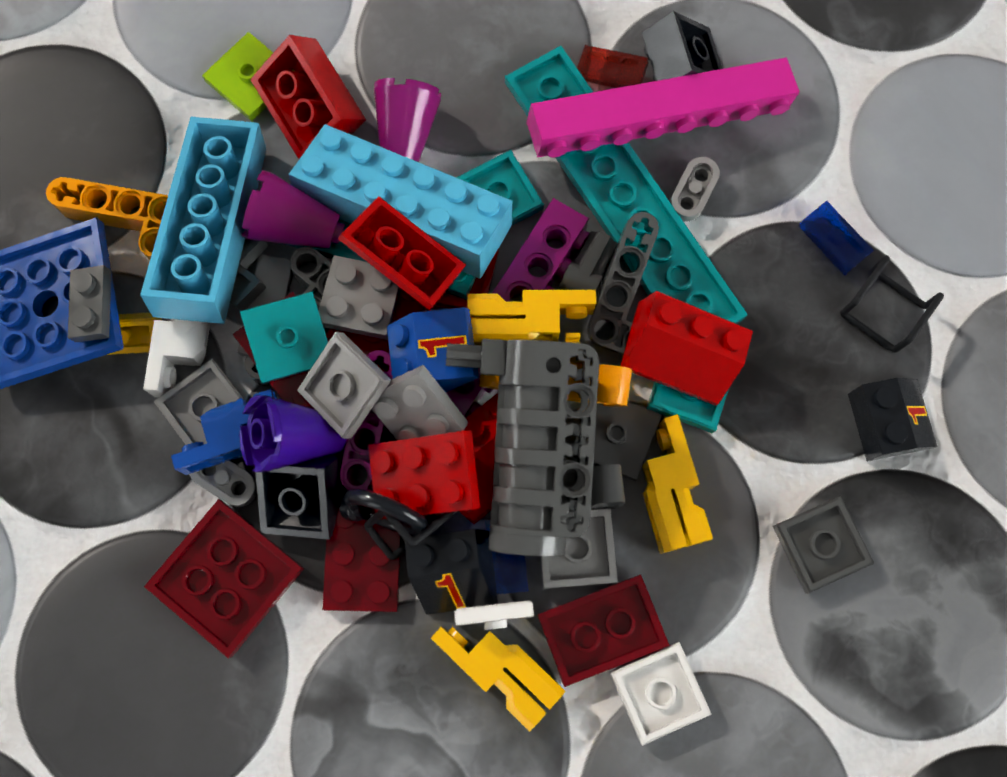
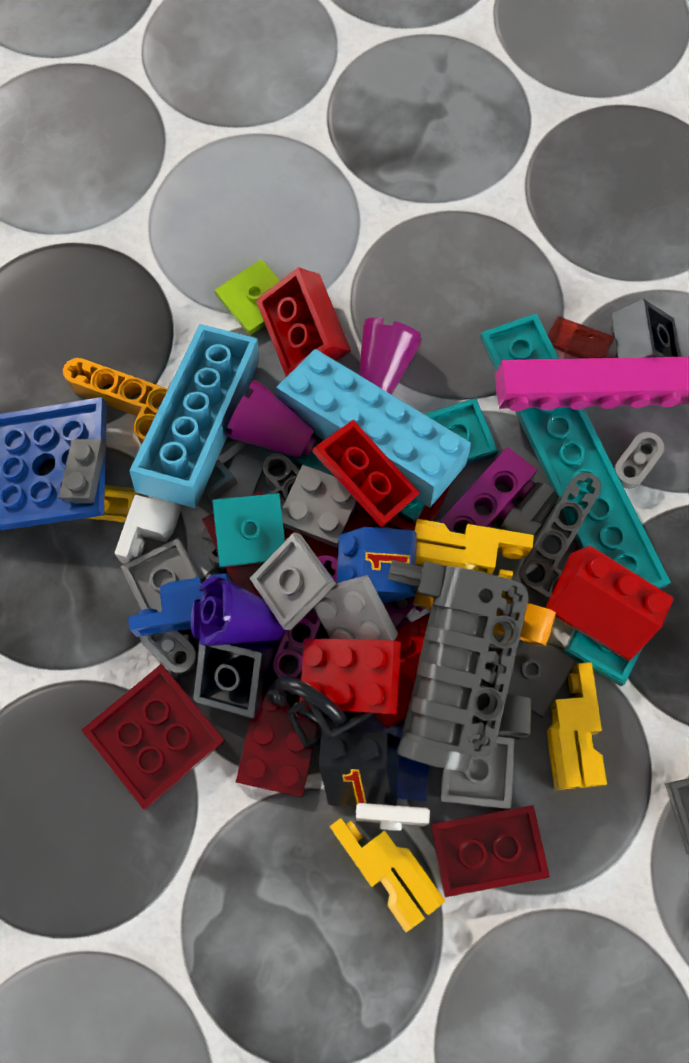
camera: 15 degrees right, 5 degrees down
(660, 693) = (534, 921): white plate -> none

